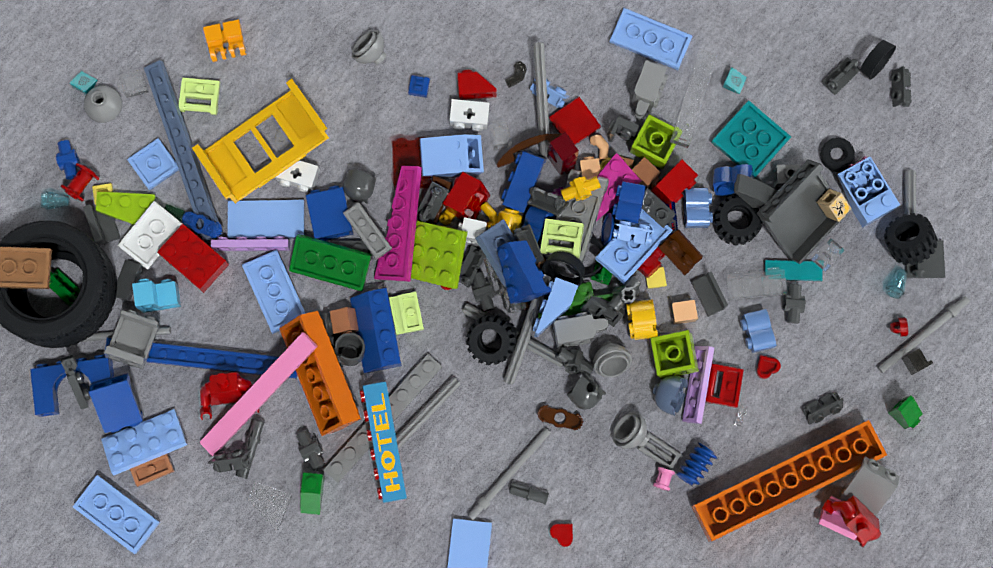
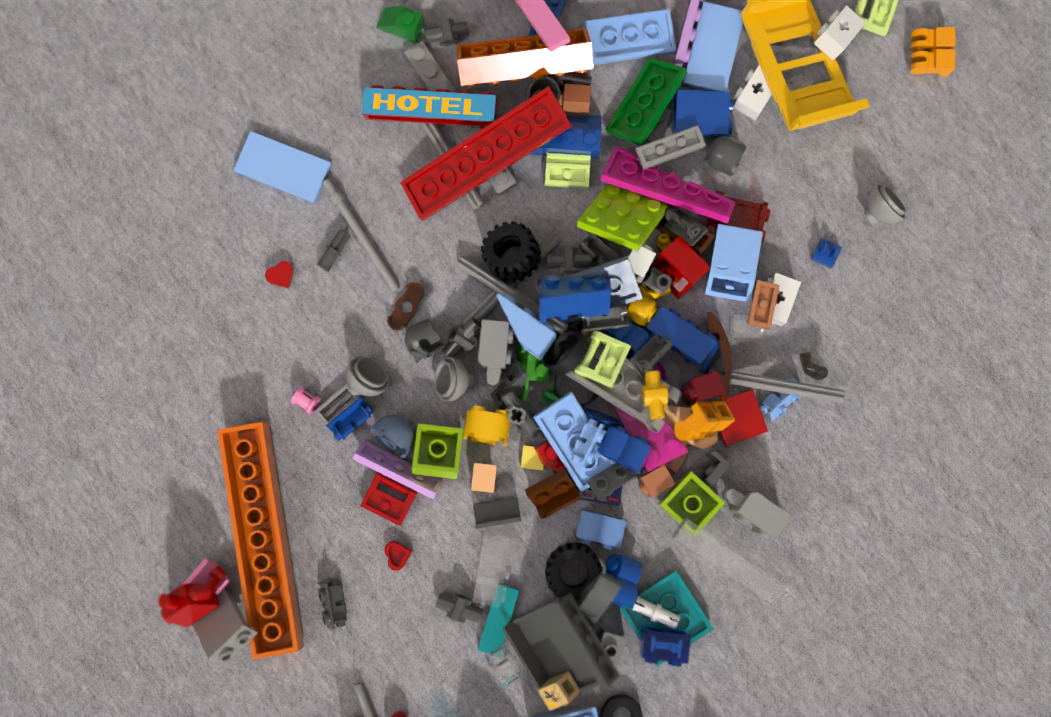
camera: 110 degrees right, 5 degrees up
(230, 118) = (839, 33): none -> white brick
(415, 382) = (486, 153): none -> red plate
(474, 86) = (810, 312): red slope -> none
(480, 123) = (763, 304): none -> nougat plate
(483, 211) = (657, 280): none -> dark grey axle
(589, 144) = (704, 421): none -> light orange legs
(650, 39) = (818, 536): light blue tile -> none
(661, 431) = (354, 414): none -> blue hinge
(675, 182) = (635, 510): red slope -> none
(696, 465) = (308, 441): blue piece -> none
(734, 81) = (741, 620): teal slope -> none
(750, 146) = (656, 613): none -> white pin
(758, 331) = (439, 556): medium blue brick -> none
(773, 133) = (665, 646): none -> clear blue brick
(906, 412) = (298, 698): green slope -> none

